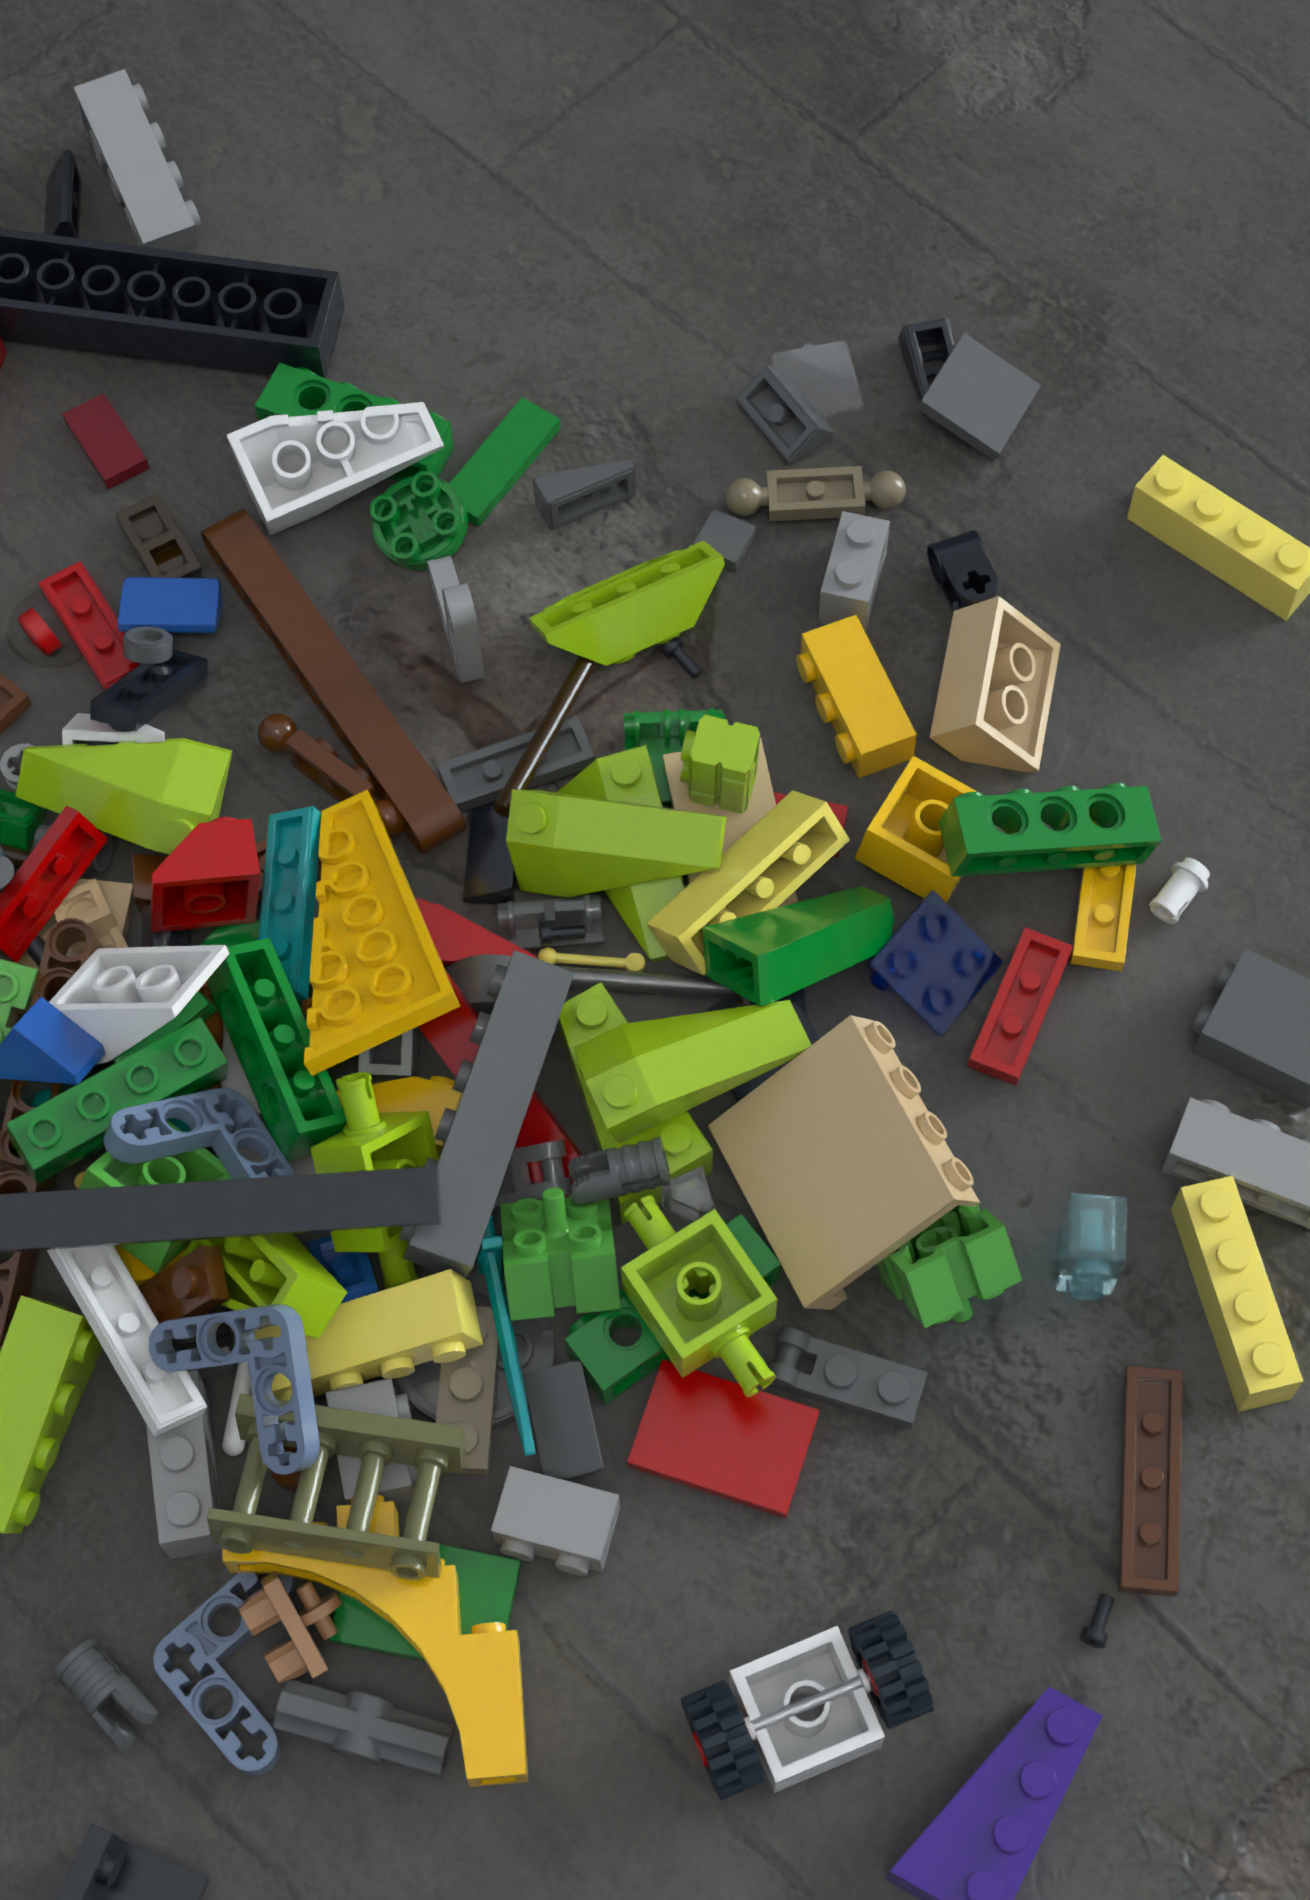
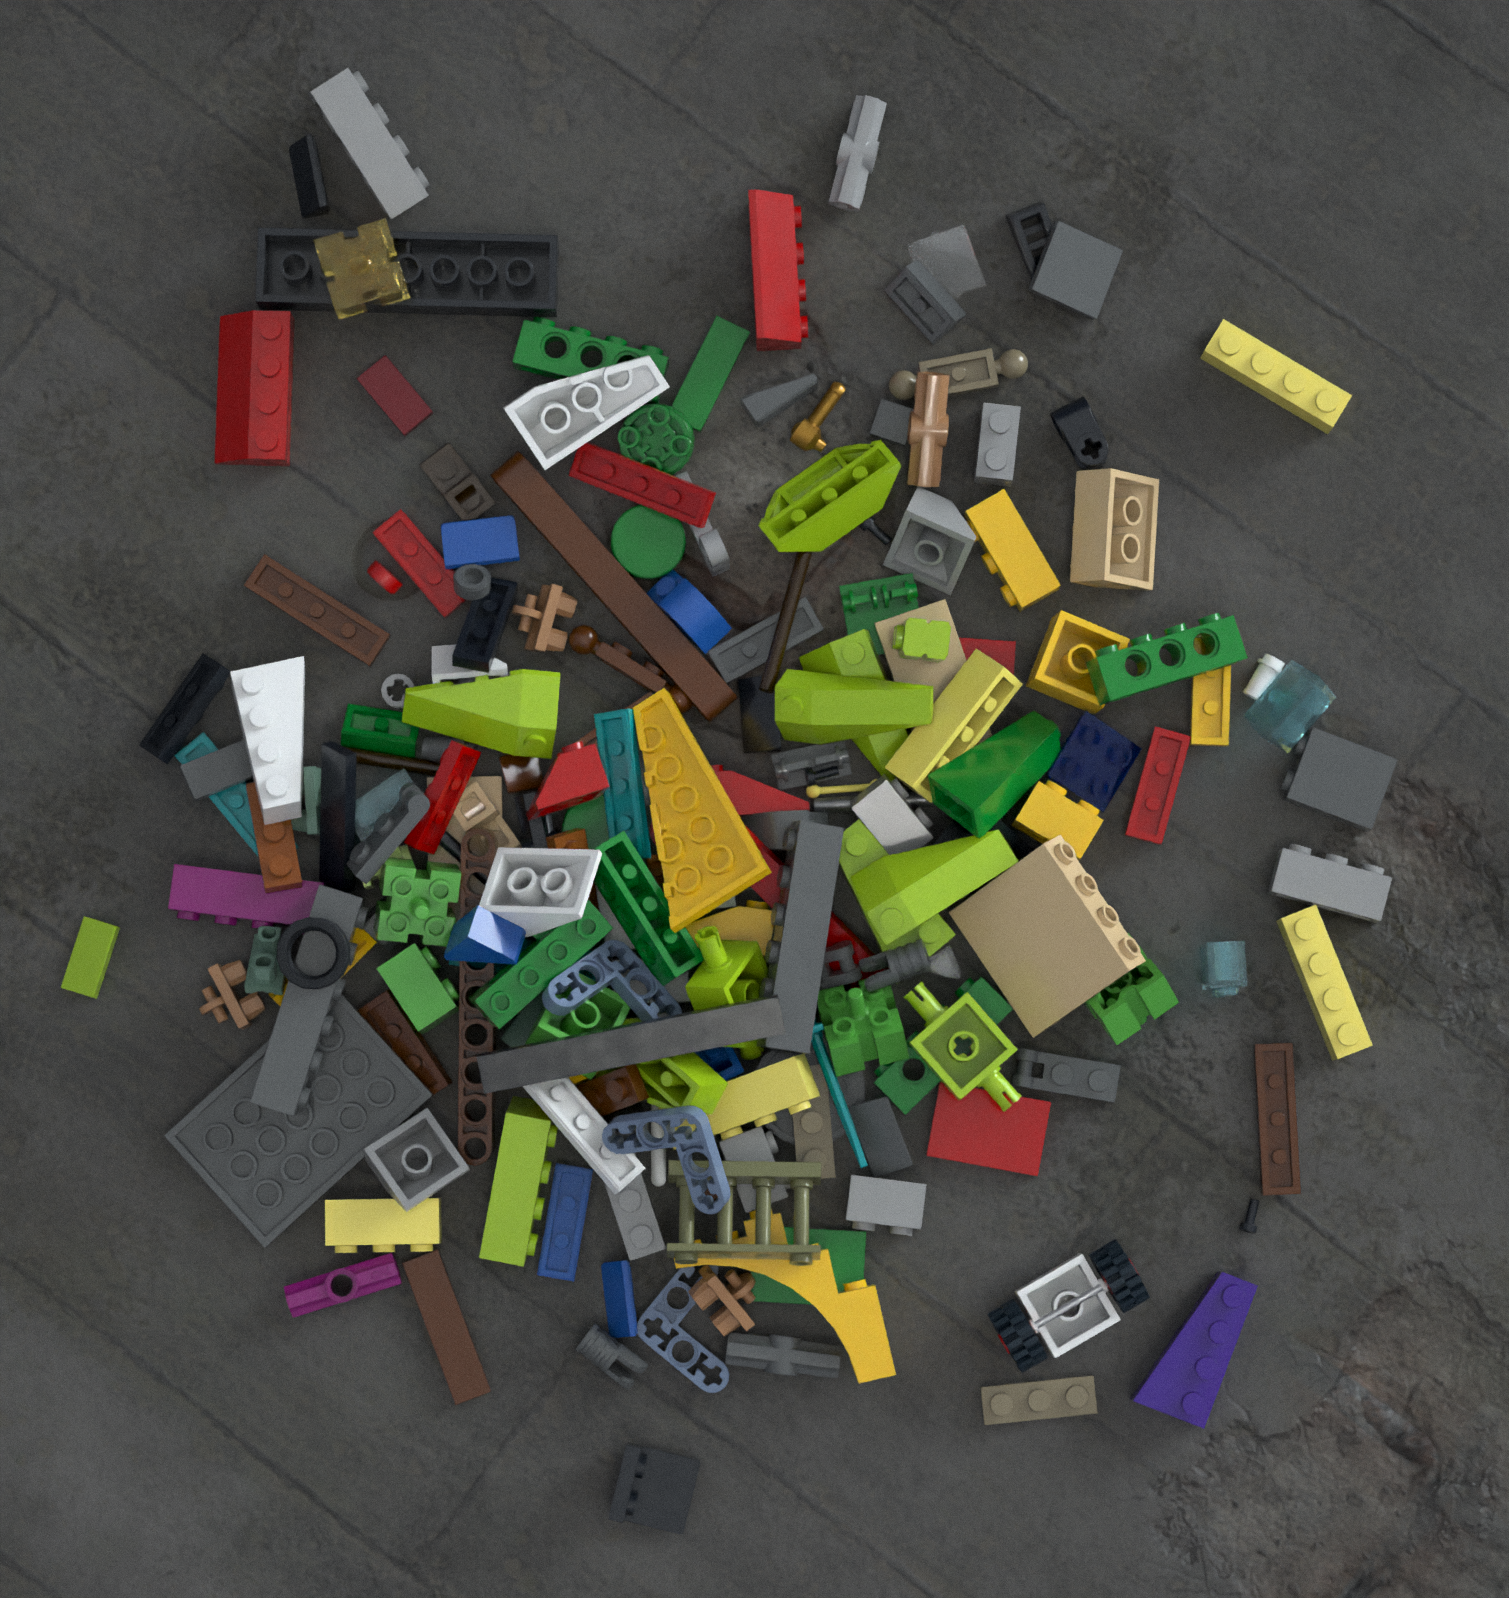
camera: 10 degrees left, 20 degrees up
(85, 1489) = (565, 1222): none -> blue tile
(86, 267) = (362, 269): none -> clear yellow brick
(141, 1609) = (619, 1299): none -> blue slope
(248, 687) = (549, 603): none -> medium nougat hips
(386, 557) = (642, 484): none -> red tile
(387, 632) = (648, 542): none -> green tile
(425, 713) = (689, 611): none -> blue brick
(601, 351) = (775, 271): none -> red slope
(612, 536) = (807, 432): none -> pearl gold piece
(642, 983) = (891, 817): none -> light grey brick
(725, 249) = (857, 153): none -> light grey piece
(744, 1858) = (1038, 1400): none -> dark tan plate
(750, 671) = (931, 541): none -> light grey slope
(766, 540) = (928, 429): none -> medium nougat piece
(871, 992) = (1051, 814): none -> yellow brick
(1213, 922) = (1289, 706): none -> clear light blue brick

